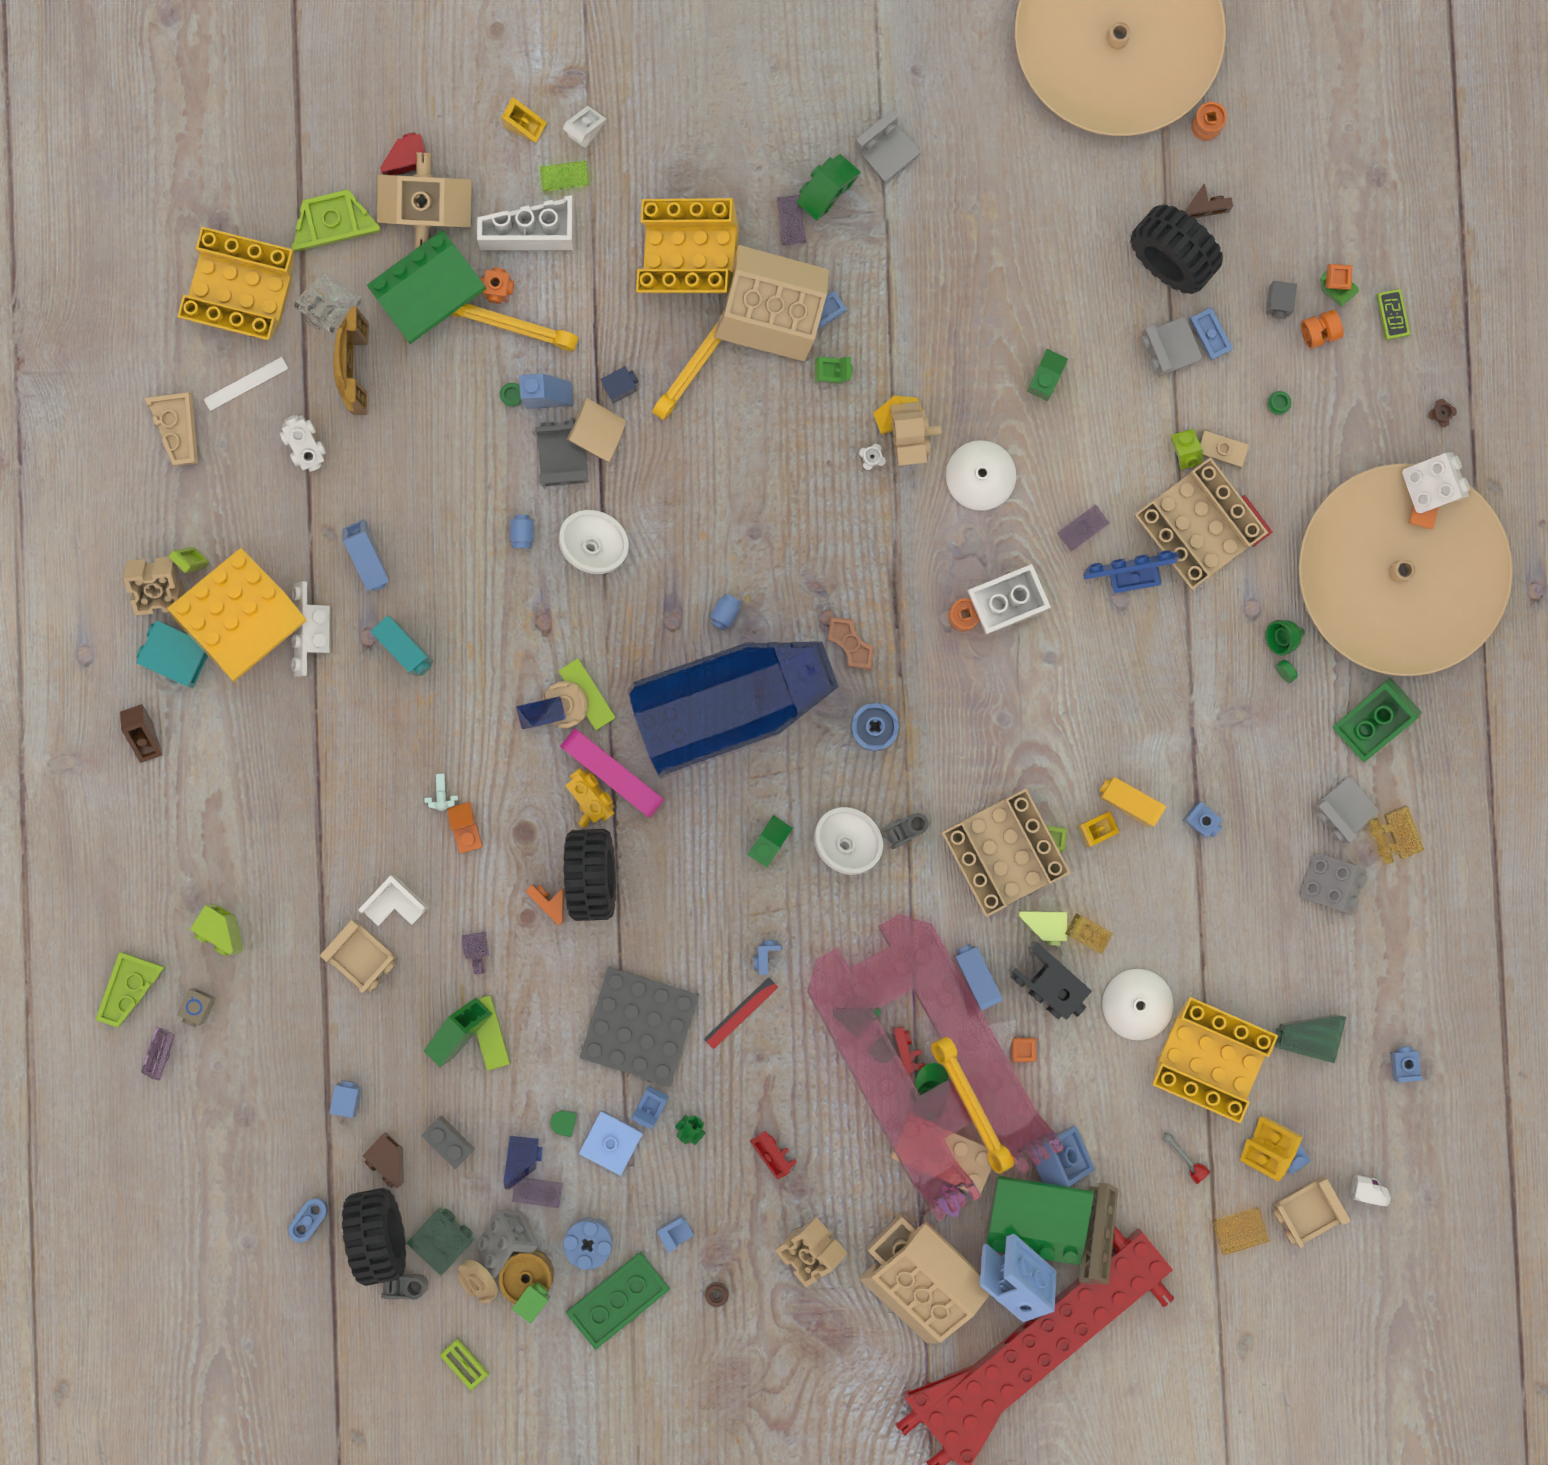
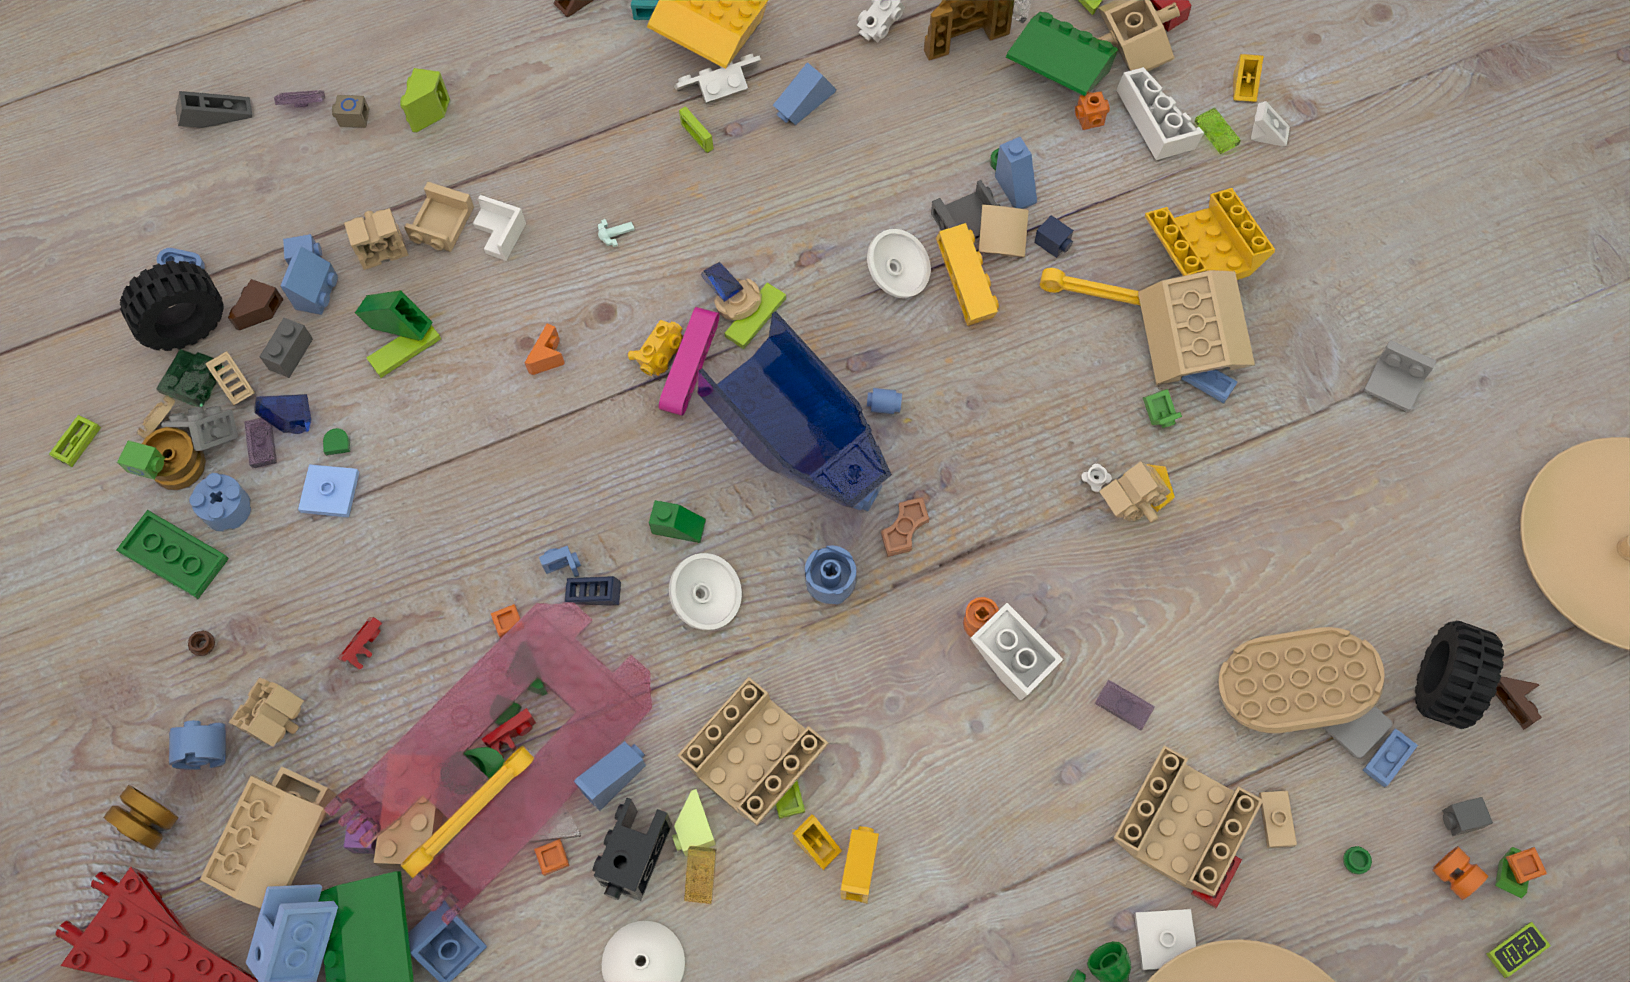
camera: 70 degrees right, 20 degrees down
(126, 988) = (351, 57): lime wing -> none
(136, 1145) = (208, 109): none -> dark grey slope
(359, 675) = (696, 129): none -> lime tile
(364, 1023) = (376, 238): none -> tan brick
(387, 1100) = (309, 281): none -> medium blue slope
(402, 646) = (734, 147): teal brick -> none
(402, 1287) = (138, 363): dark grey piece -> none
(464, 827) = (593, 258): orange slope -> none
(476, 947) = (480, 309): clear purple plate -> none
(478, 1200) = (240, 396): none -> tan slope
(521, 531) = (881, 208): medium blue brick -> none
(559, 338) = (1071, 174): yellow piece -> none
(589, 874) = (580, 362): black tyre -> none
(631, 484) = (967, 274): none -> yellow brick
(639, 1026) = (452, 475): dark grey plate -> none
(650, 1107) = (373, 511): medium blue bracket -> none
(675, 1233) = (253, 579): medium blue panel -> none
(690, 1129) = (362, 547): green gear -> none
(741, 1013) = (497, 563): red sticker -> none
(791, 220) = (1282, 324): clear purple plate -> none
(800, 1021) = (505, 619): none -> orange tile
(812, 920) = (609, 591): none -> dark blue slope
(817, 1318) = (197, 745): none -> medium blue brick
(827, 185) = (1332, 334): green brick -> none
(863, 1380) = (139, 821): none -> pearl gold wheel
(904, 830) = (736, 644): dark grey piece -> none
(976, 491) = (1121, 599): white dish -> none
(1047, 375) = (1260, 608): green slope -> none
(1125, 376) = (1301, 680): none -> tan plate
(1135, 573) = (1101, 772): blue bracket -> none
(1187, 449) = (1259, 778): lime bracket -> none
(1195, 817) = (880, 946): medium blue brick -> none
(1209, 121) = (1604, 666): orange wheel -> none
(1278, 584) = (1163, 936): none -> white plate

